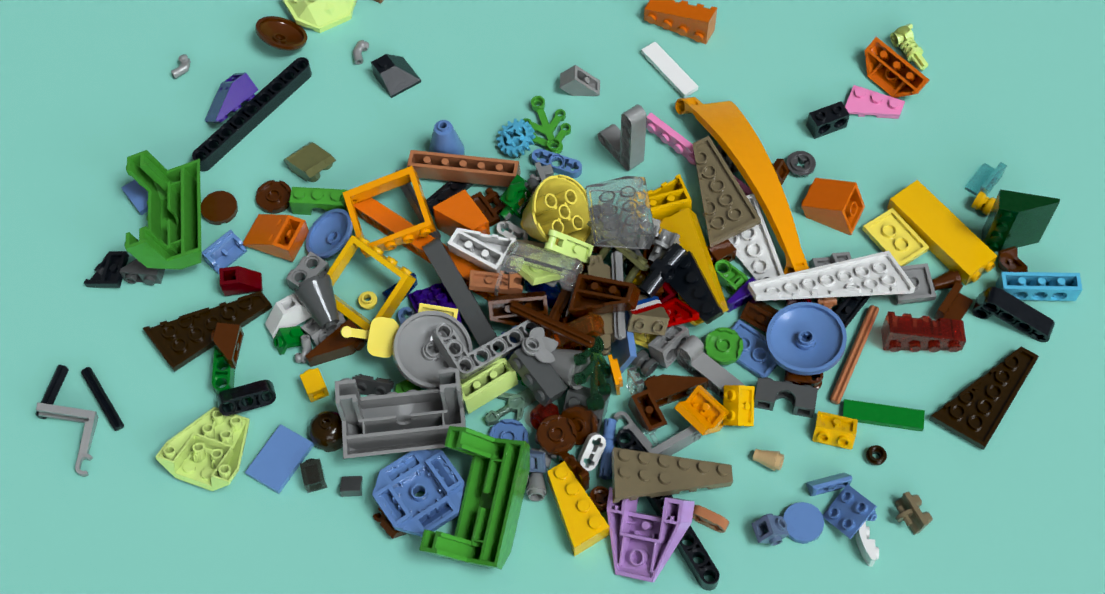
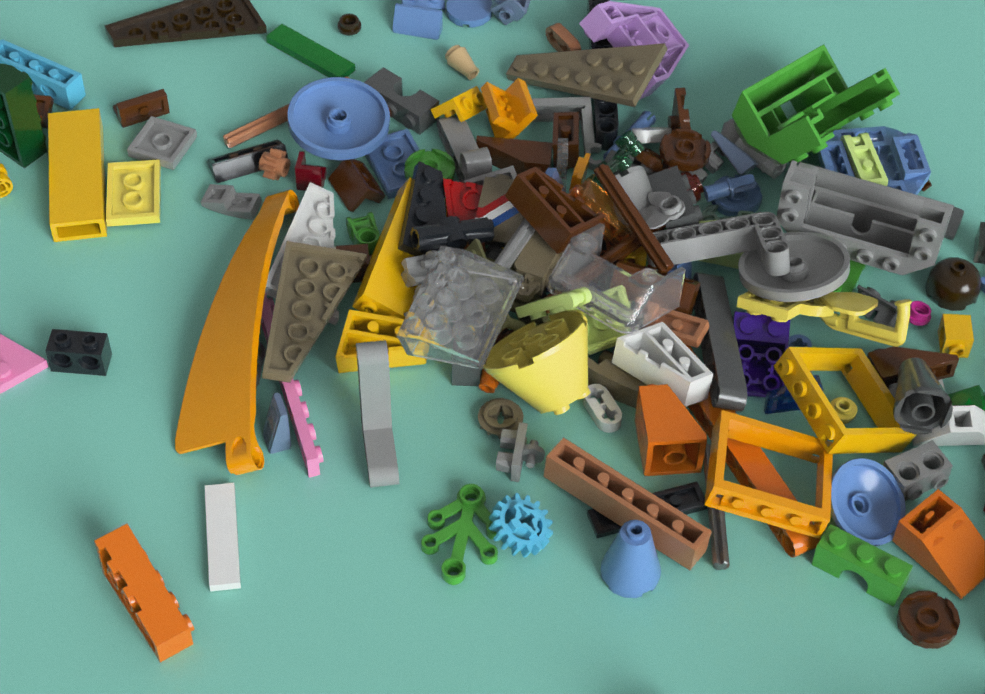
camera: 155 degrees left, 10 degrees down
(306, 348) = (956, 380): light grey arm -> none
(309, 162) = (853, 645): olive slope -> none
(423, 480) = (864, 158): none -> yellowish green plate
(483, 204) = (625, 448): reddish brown plate -> none
(513, 427) = (729, 187): none -> medium blue axle
(517, 196) = (567, 417): green torso -> none
(571, 163) = (480, 462): medium blue beam -> none
(577, 511) = (702, 83): yellow wedge -> none
(579, 82) = (373, 569): light grey slope -> none
(600, 495) = (665, 97): reddish brown wheel -> none
(683, 125) = (276, 427): none -> sand blue slope
(740, 297) = (360, 205): dark purple slope -> none
(781, 170) = (196, 323): reddish brown tile -> none
(804, 158) = (154, 317): flat silver gear -> none
(834, 204) = (171, 250): orange slope -> none
(835, 430) = (370, 56): yellow bracket -> none
(854, 277) = (228, 156): white wing -> none
(922, 333) = (206, 88): clear red wedge -> none
(947, 280) = (119, 128): reddish brown cone -> none
(1014, 312) = (94, 65): black beam -> none

